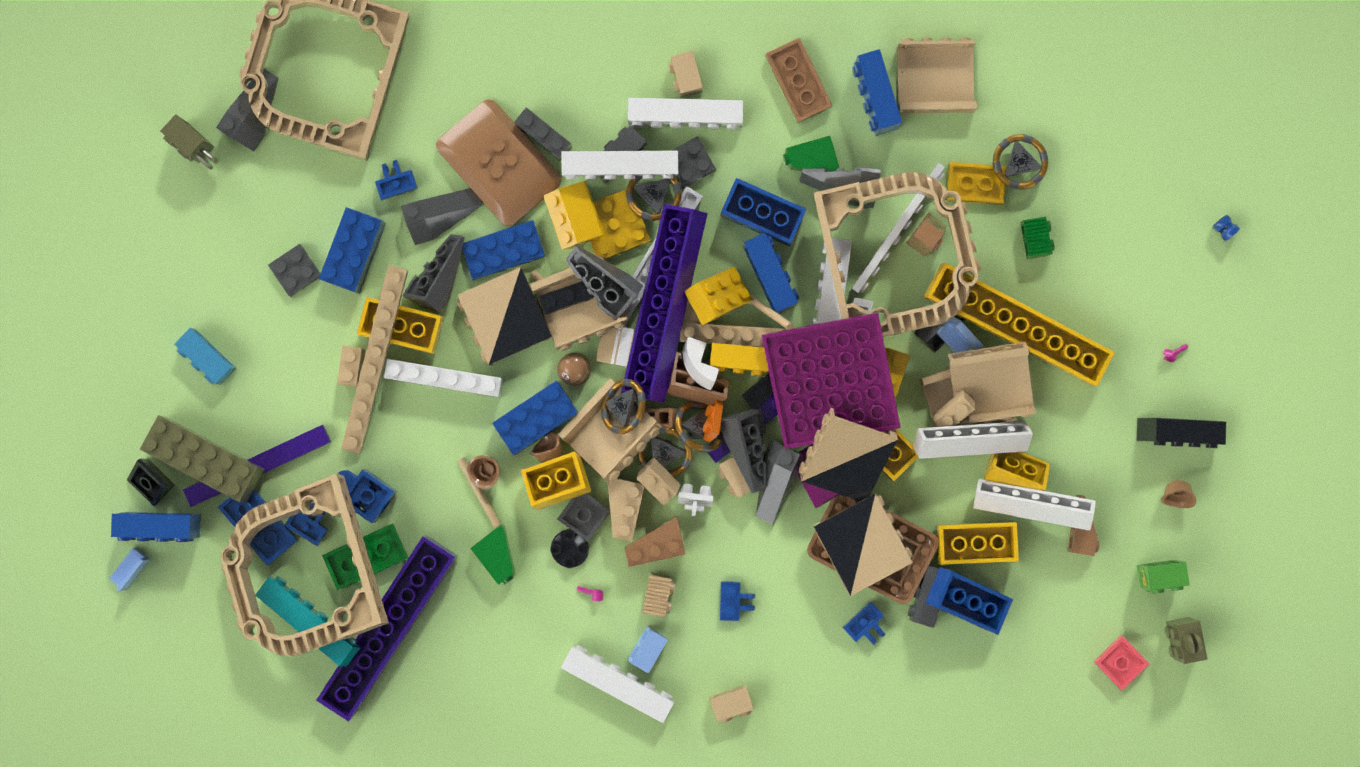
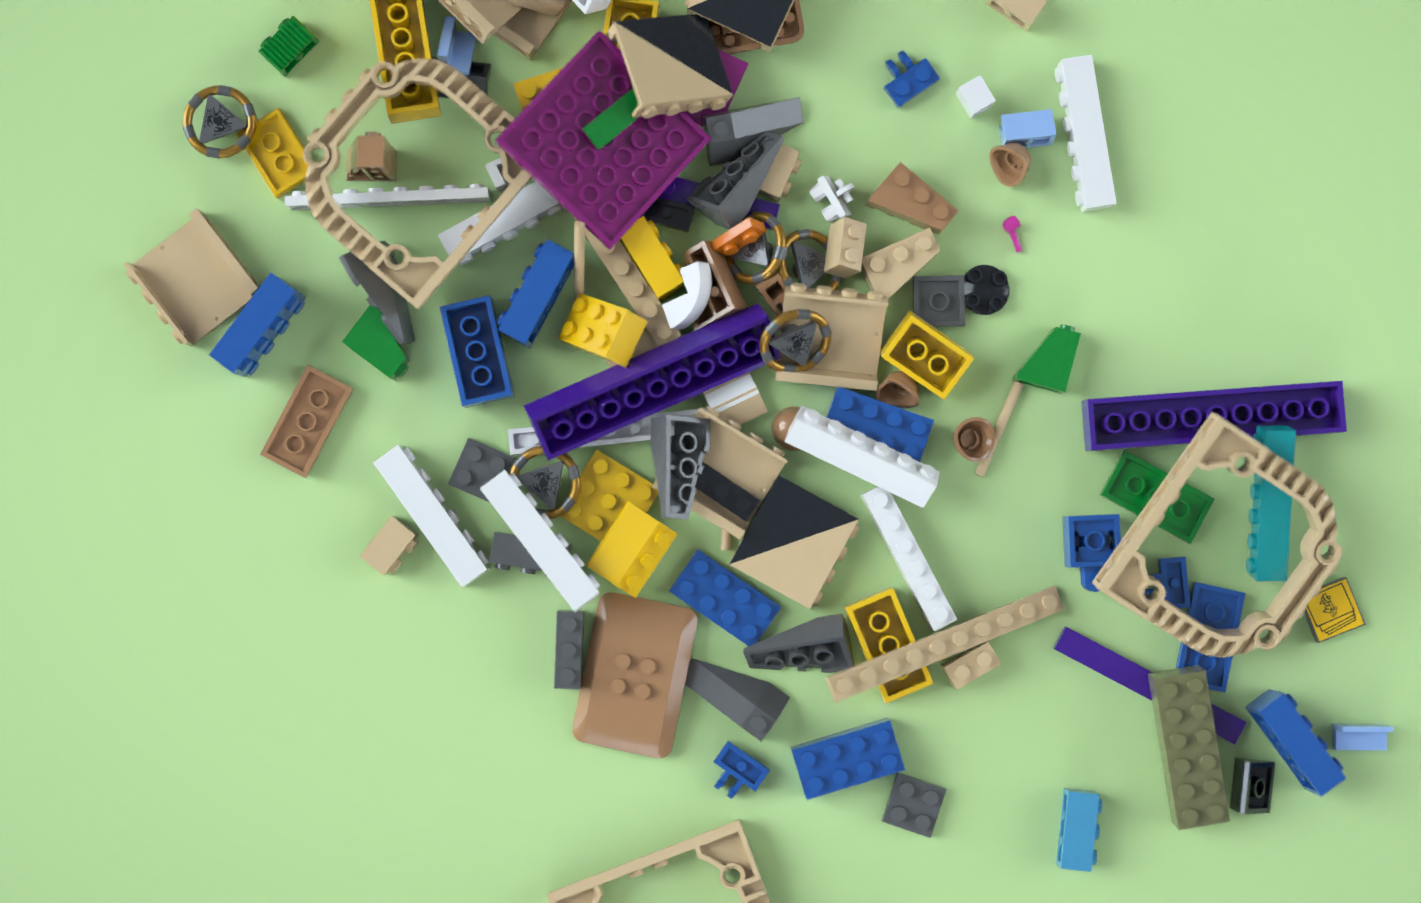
camera: 130 degrees left, 0 degrees up
(216, 611) = (1333, 611): none -> yellow tile
(523, 394) = (862, 456): none -> white brick
(634, 622) = (1010, 163): none -> medium nougat helmet
(657, 595) = (963, 160): tan brick -> none
(691, 632) = (975, 96): none -> white panel
(838, 394) = (612, 120): none -> green tile

